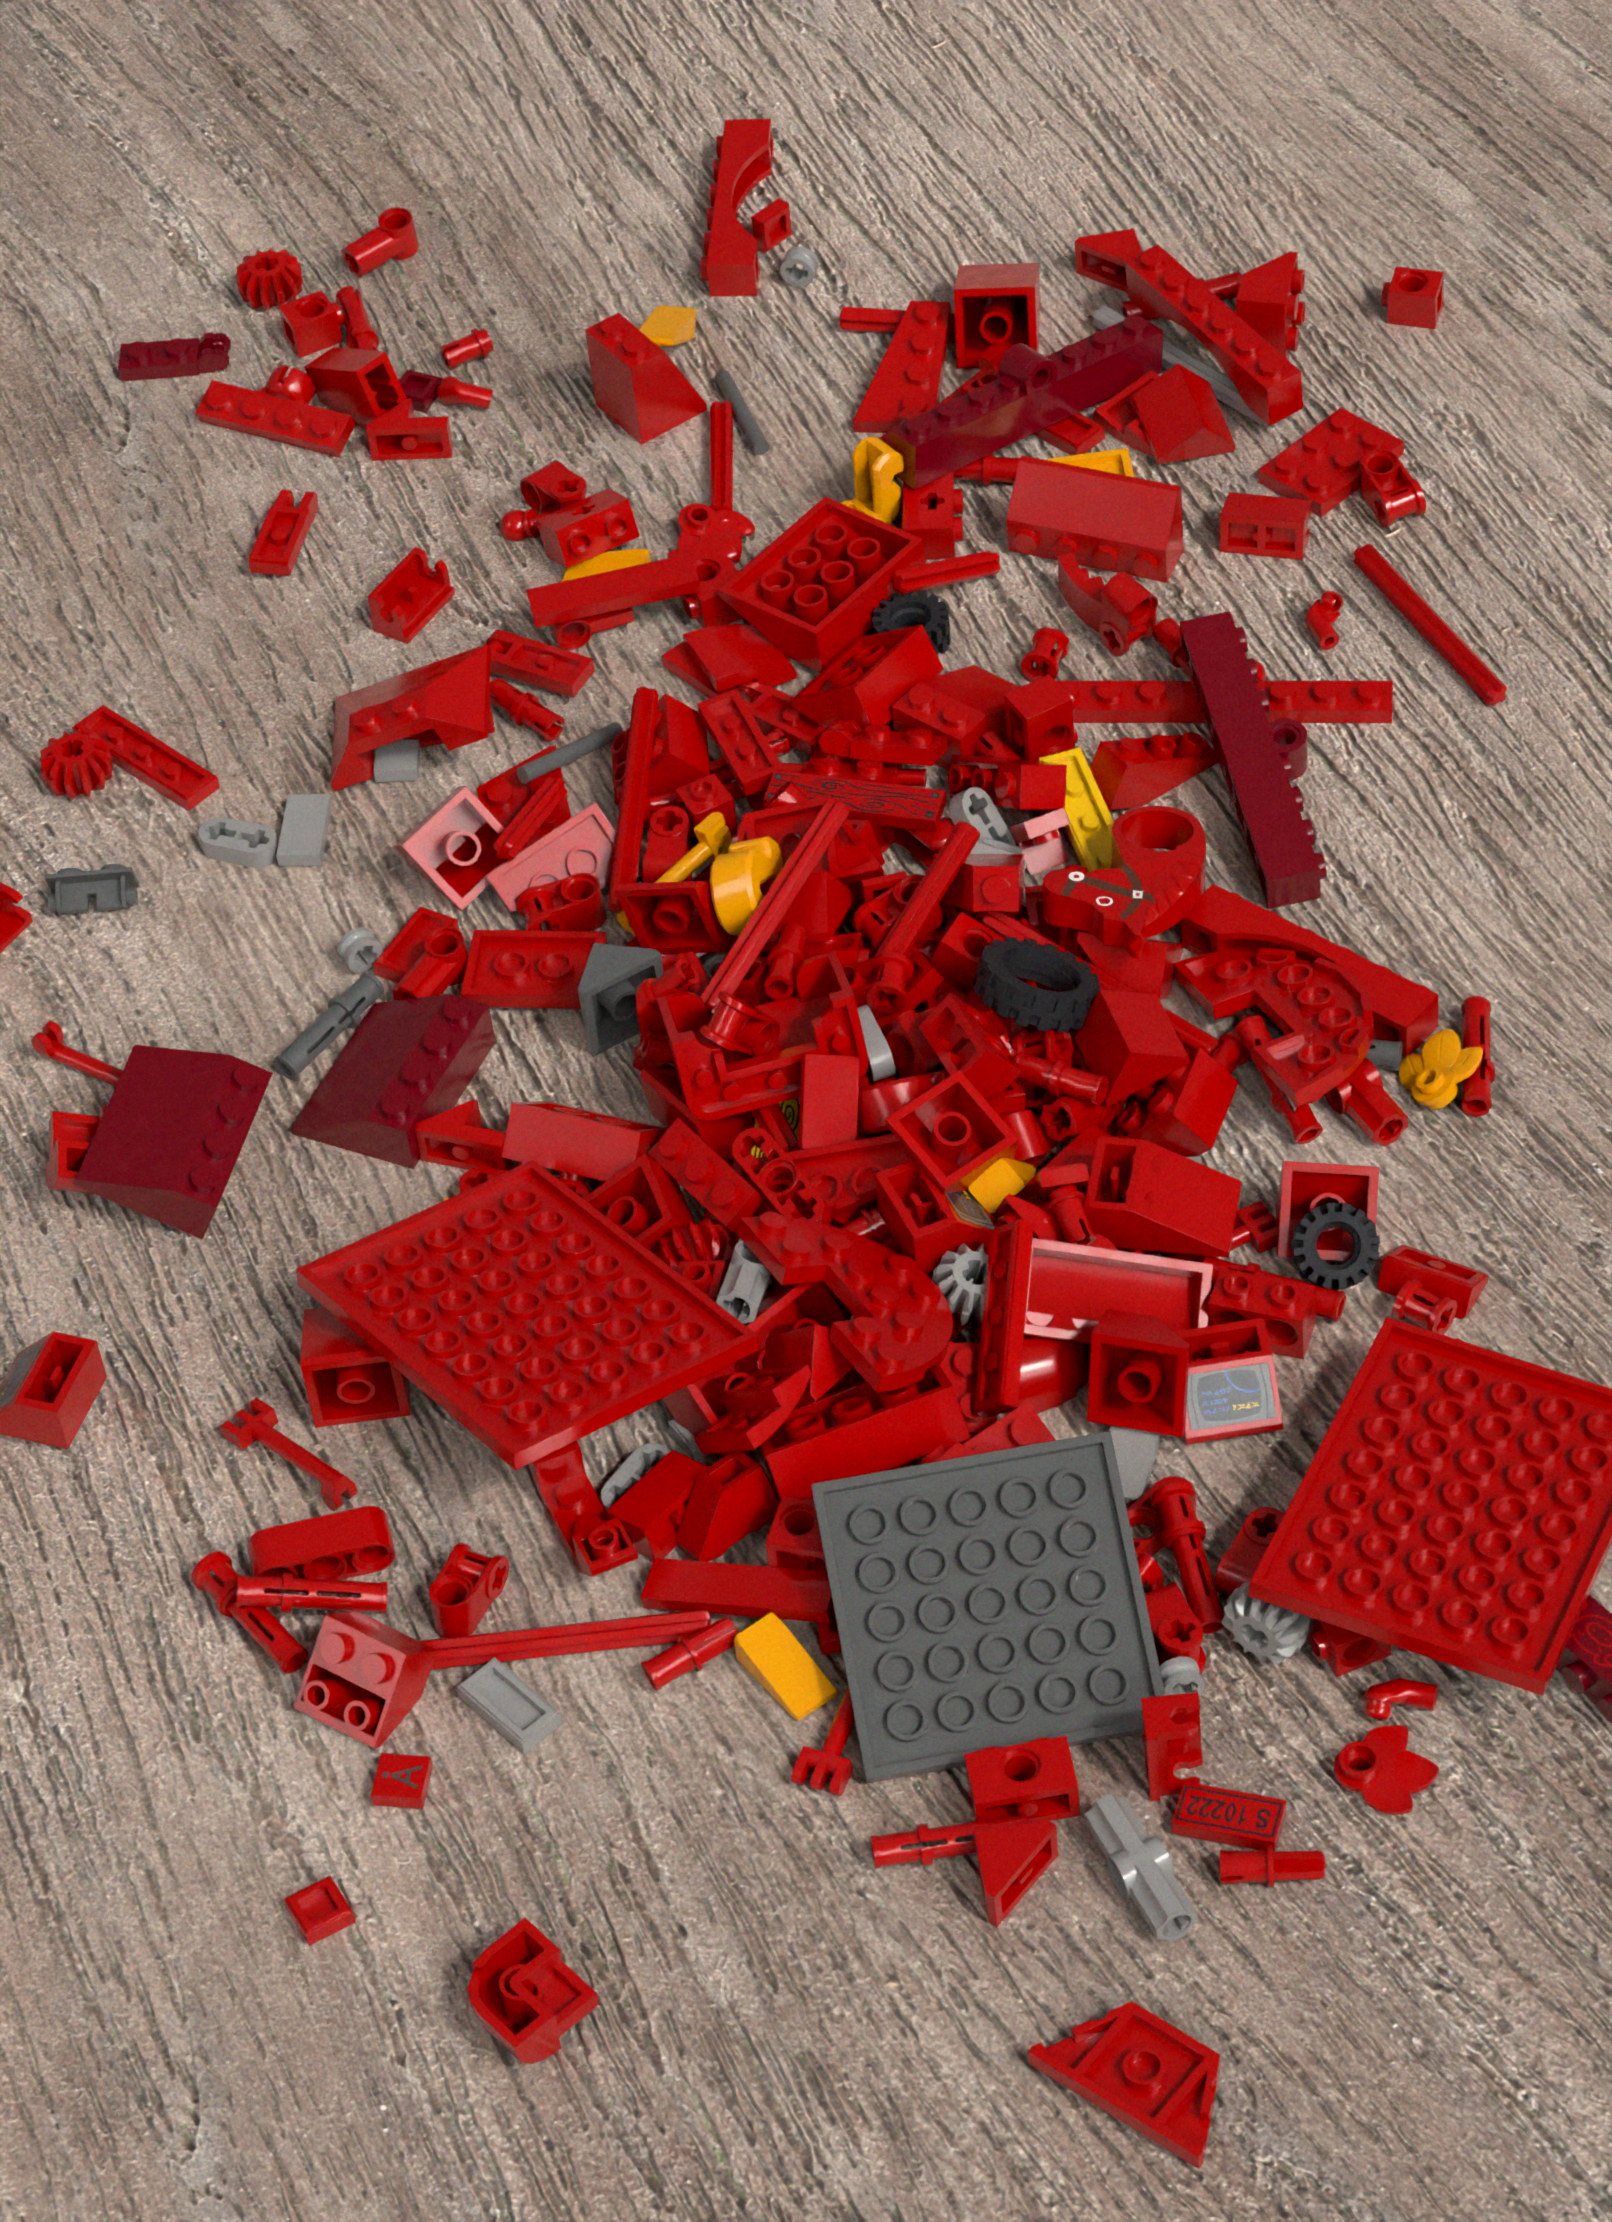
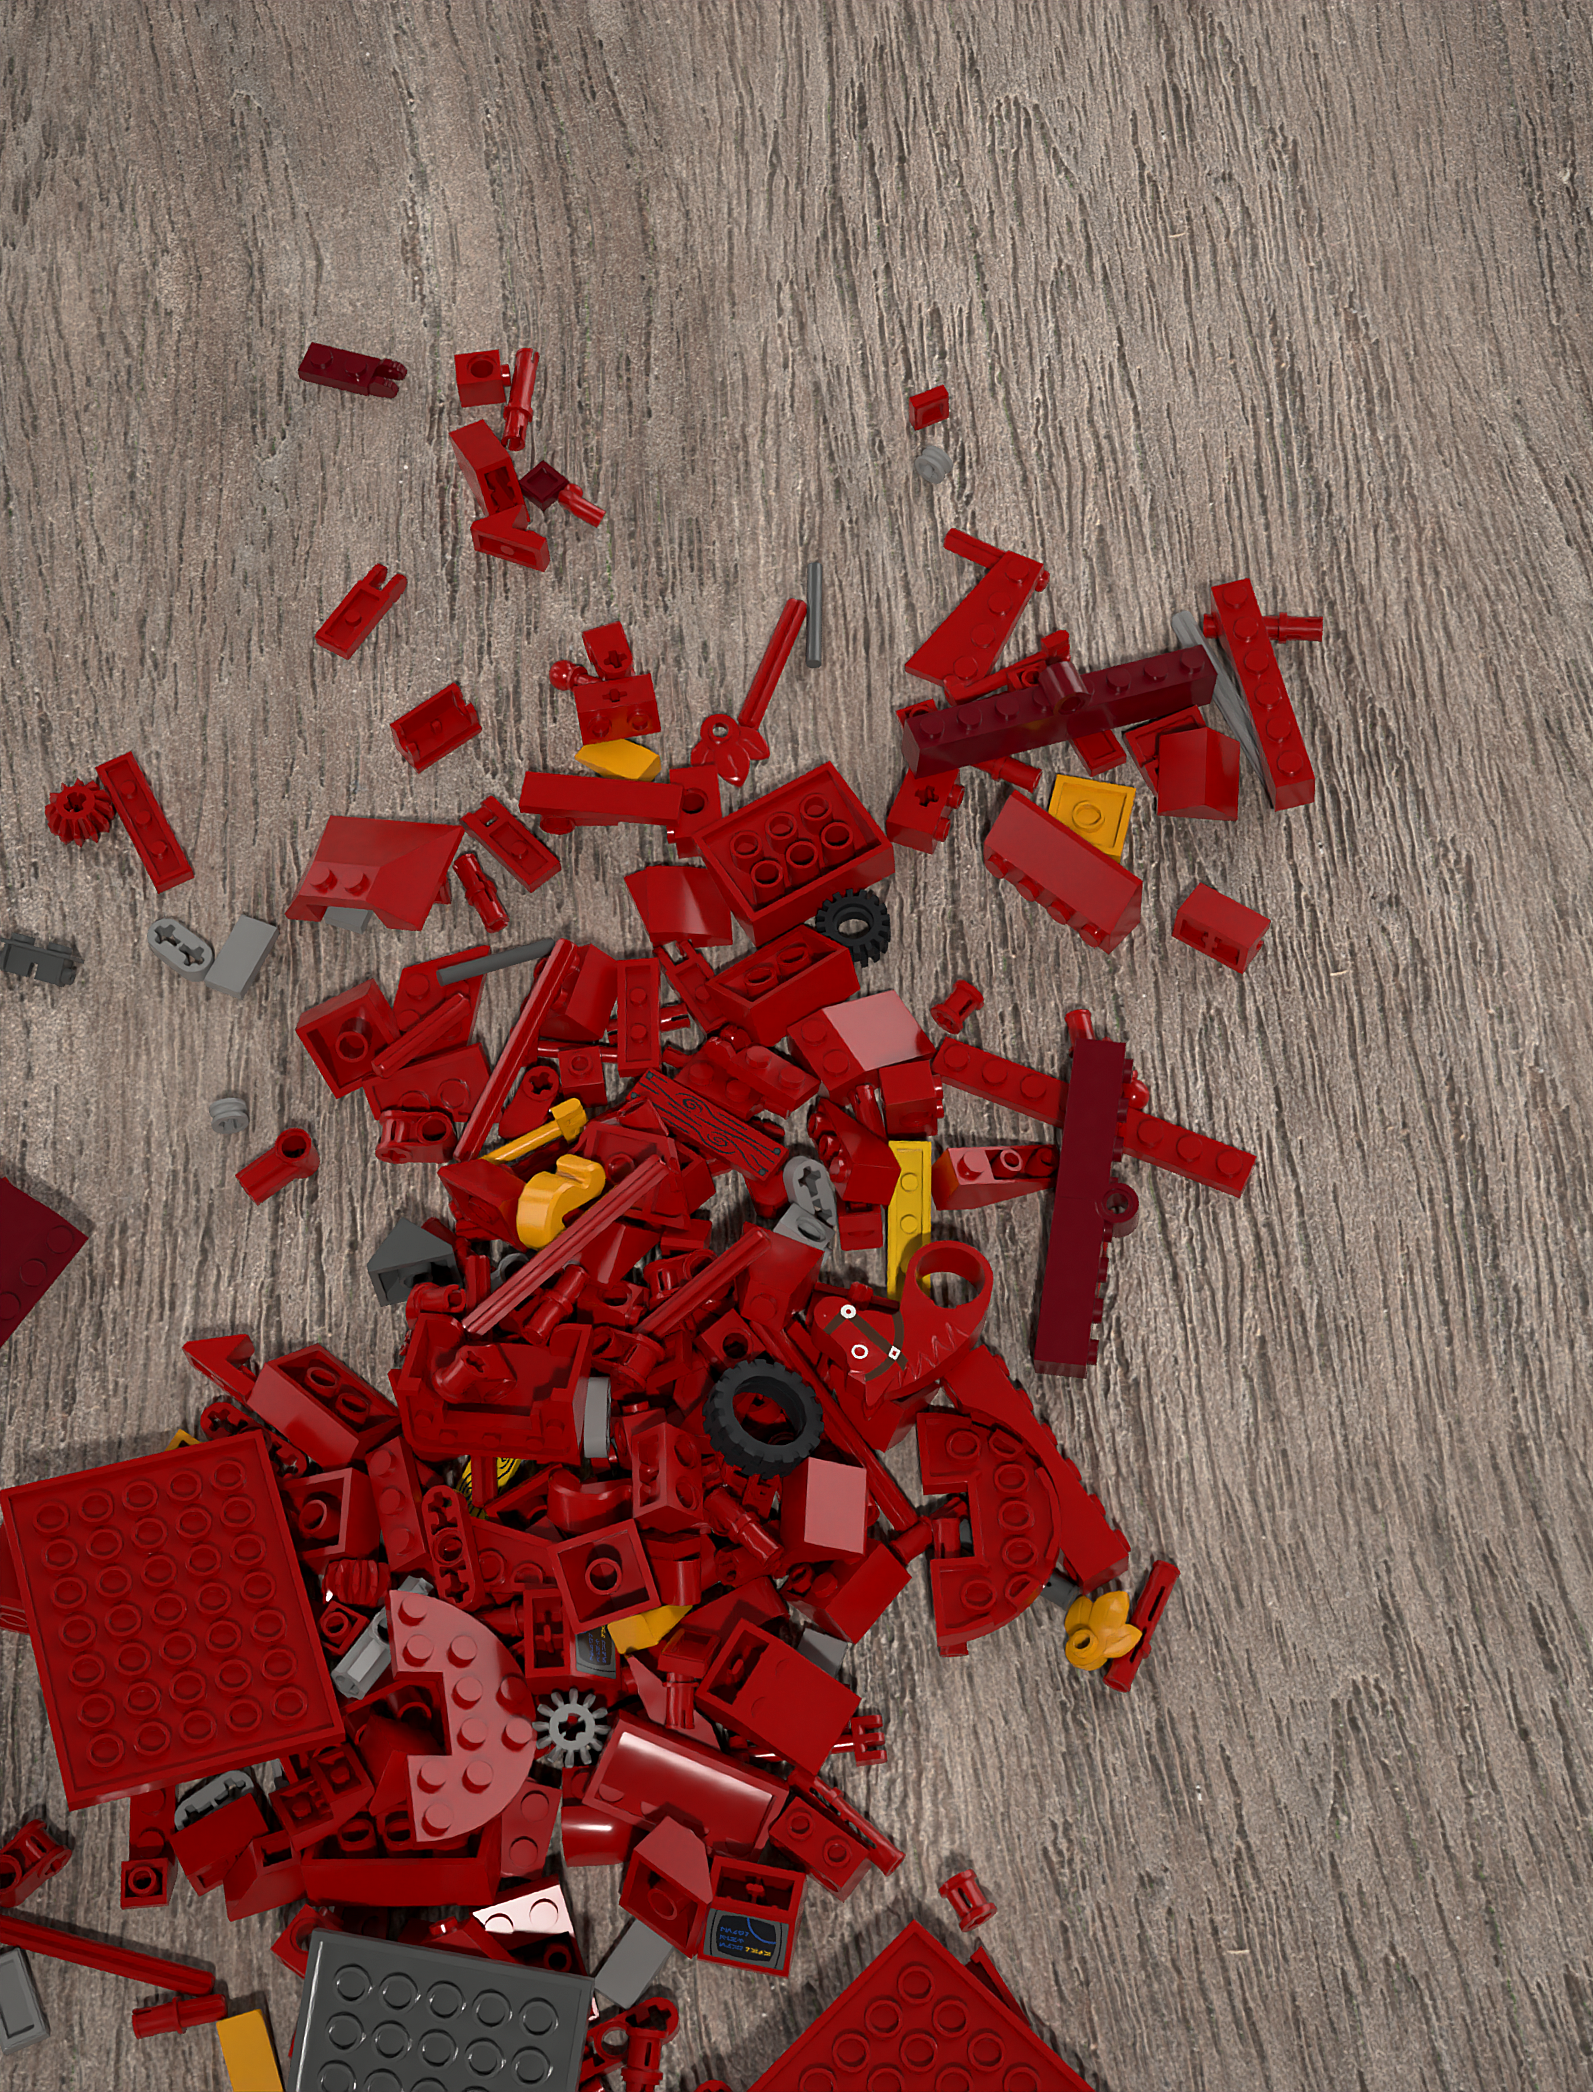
camera: 20 degrees right, 15 degrees up
(269, 278) = (466, 313): red gear -> none
(278, 412) = (412, 470): red plate -> none
(342, 1013) = (170, 1189): dark grey pin -> none
(392, 239) = (591, 303): red piece -> none
(397, 1071) = (202, 1270): dark red slope -> none
(409, 944) = (293, 1111): red tile -> none
(467, 348) = (604, 454): red pin -> none
(527, 967) = (363, 1191): red plate -> none
(638, 381) = (732, 556): red slope -> none
(670, 325) = (782, 499): light orange slope -> none
(738, 1590) = (238, 1963): red tile -> none
(743, 161) = (938, 319): red arch -> none
(828, 1100) = (523, 1483): red slope -> none
(873, 473) = (883, 767): light orange animal -> none
(946, 572) = (907, 880): red axle -> none
(995, 308) = (1085, 586): red slope -> none
(1004, 1318) = (573, 1789): red tile -> none
(1080, 590) = (1024, 952): red slope -> none
(1104, 256) = (1216, 555): red slope -> none
(1126, 613) = (1042, 993): red piece -> none
(1271, 301) = (1328, 681): red slope -> none
(1315, 1184) = (922, 1765): red slope -> none
(1322, 617) = (1227, 1054): red arm -> none
(1327, 461) = (1316, 870): red plate -> none
(1363, 1235) = (899, 1827): black tyre -> none
(1369, 1104) = (1022, 1650): red piece -> none
(1389, 487) = (1352, 934): red piece -> none
(1414, 297) = (1475, 720): red brick -> none
(1430, 625) = (1321, 1100): red axle -> none
(1436, 1274) = (1000, 1867): red slope -> none

